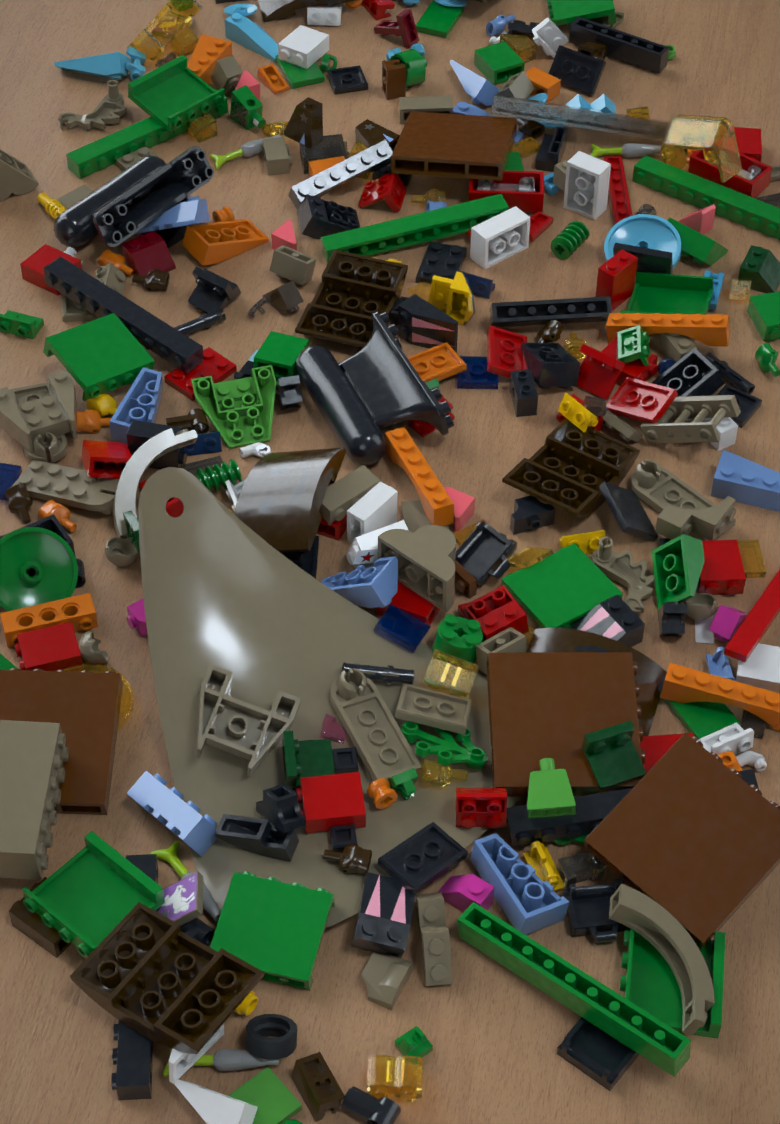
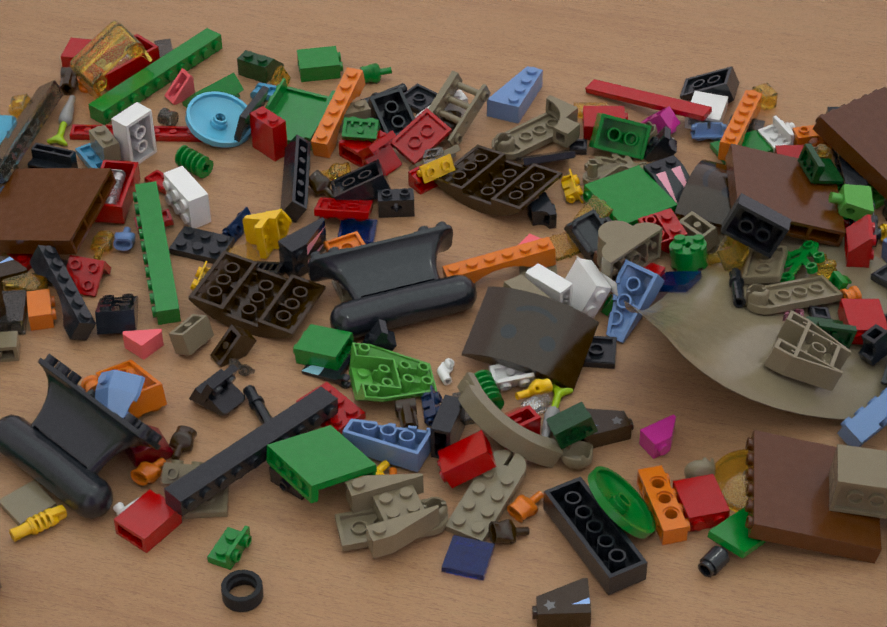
camera: 85 degrees left, 5 degrees down
(464, 672) = (755, 225): none -> black brick

